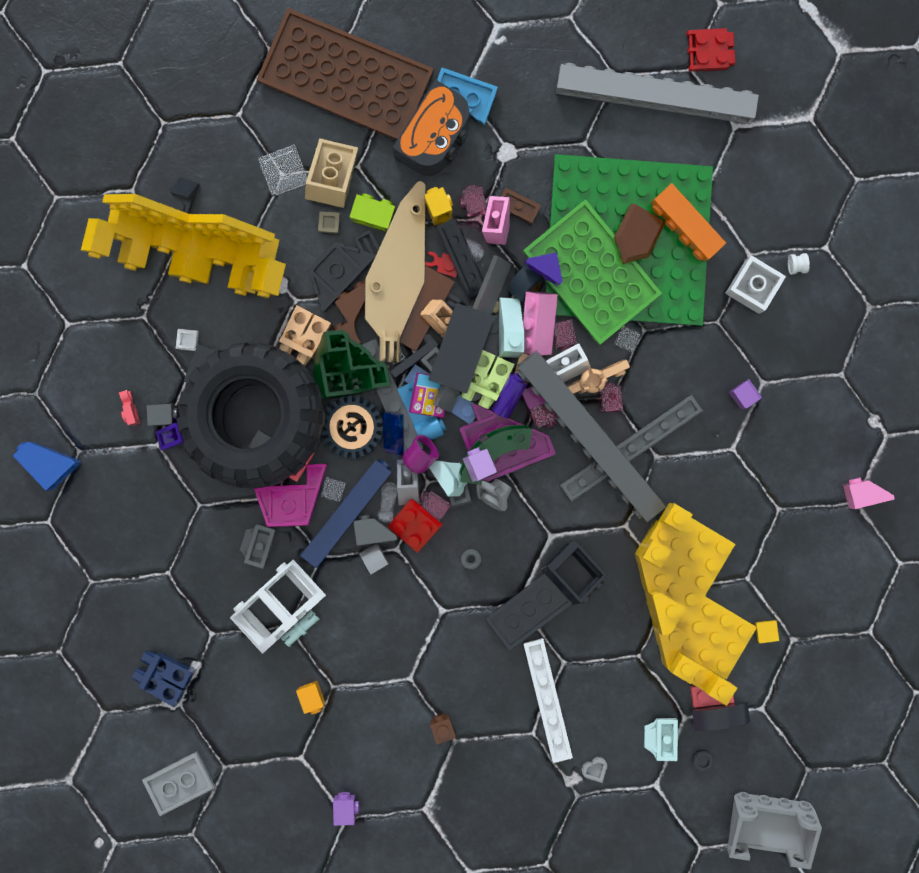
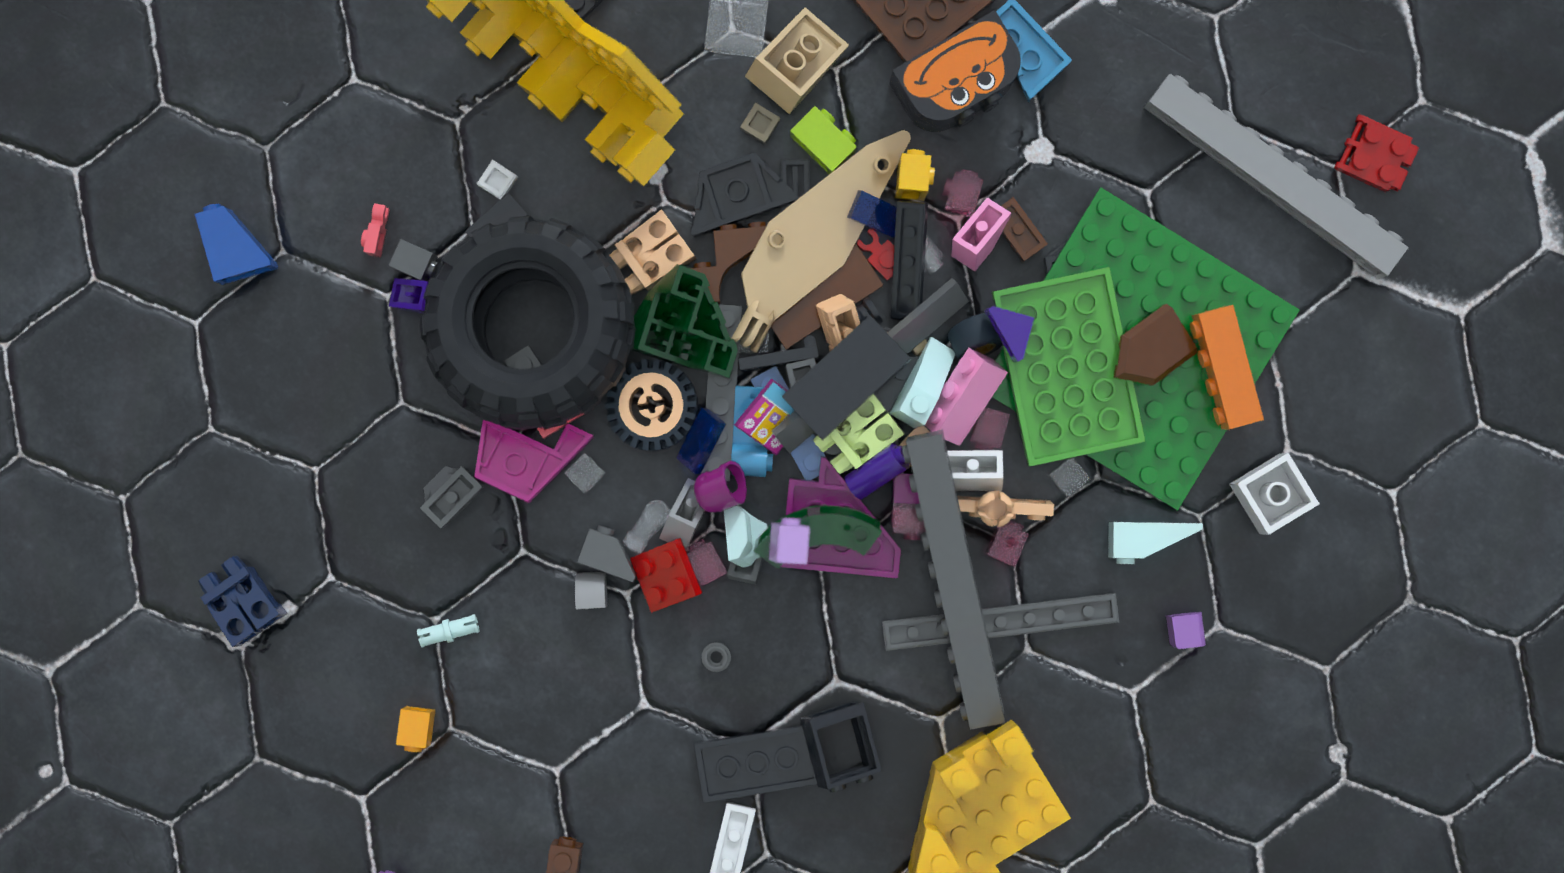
camera: 30 degrees right, 0 degrees up
(178, 783) = (187, 749): light grey tile -> none
(254, 628) = (388, 598): white window -> none
(347, 513) = (586, 513): dark blue brick -> none
(426, 241) = (874, 213): none -> clear blue tile
(495, 494) = (790, 590): light grey piece -> none
(690, 353) = (1140, 540): none -> light aqua slope
(798, 263) = (1345, 495): white wheel -> none
(864, 494) = (1274, 841): bright pink slope -> none

